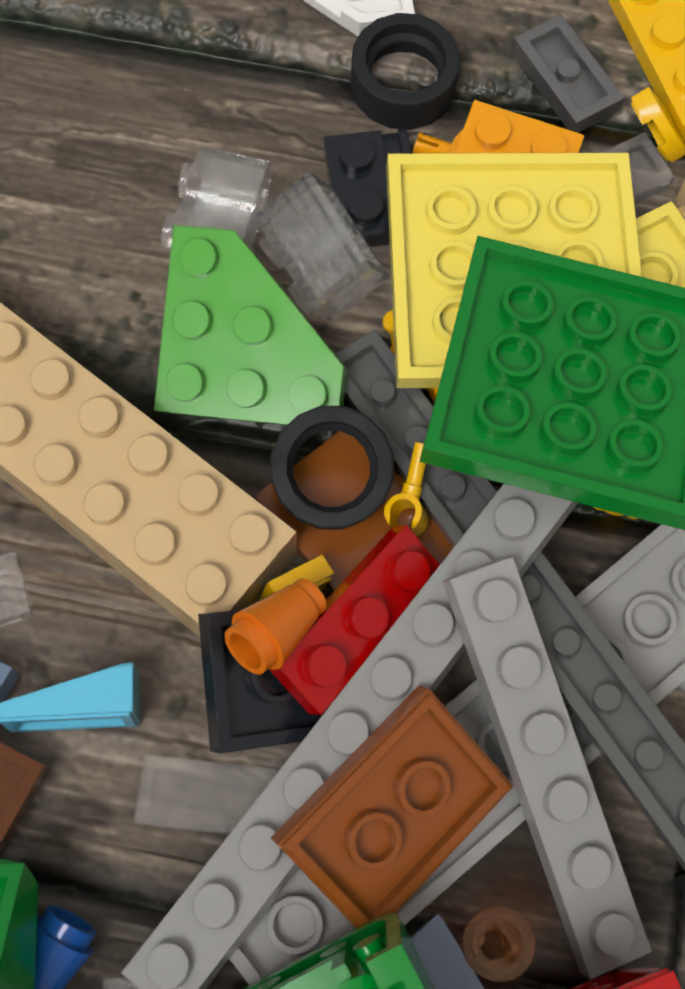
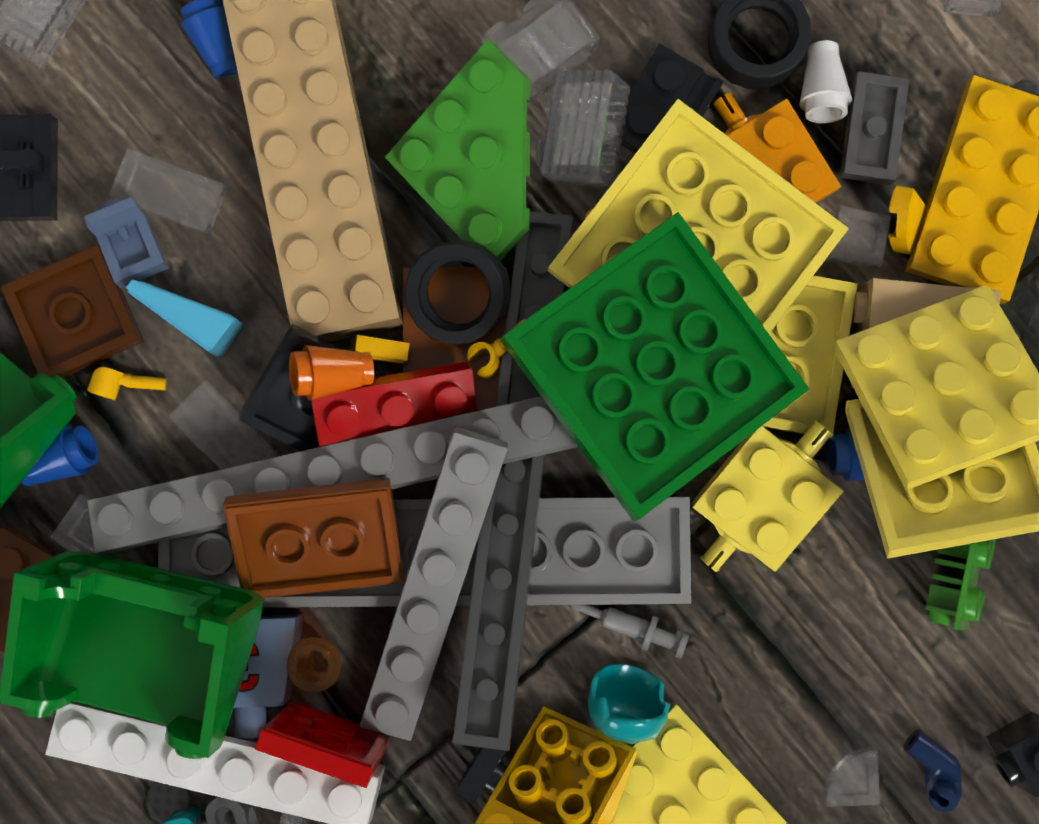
camera: 40 degrees right, 15 degrees up
(41, 836) = (107, 382): none -> yellow hand
(497, 71) = (825, 86): none -> white cone

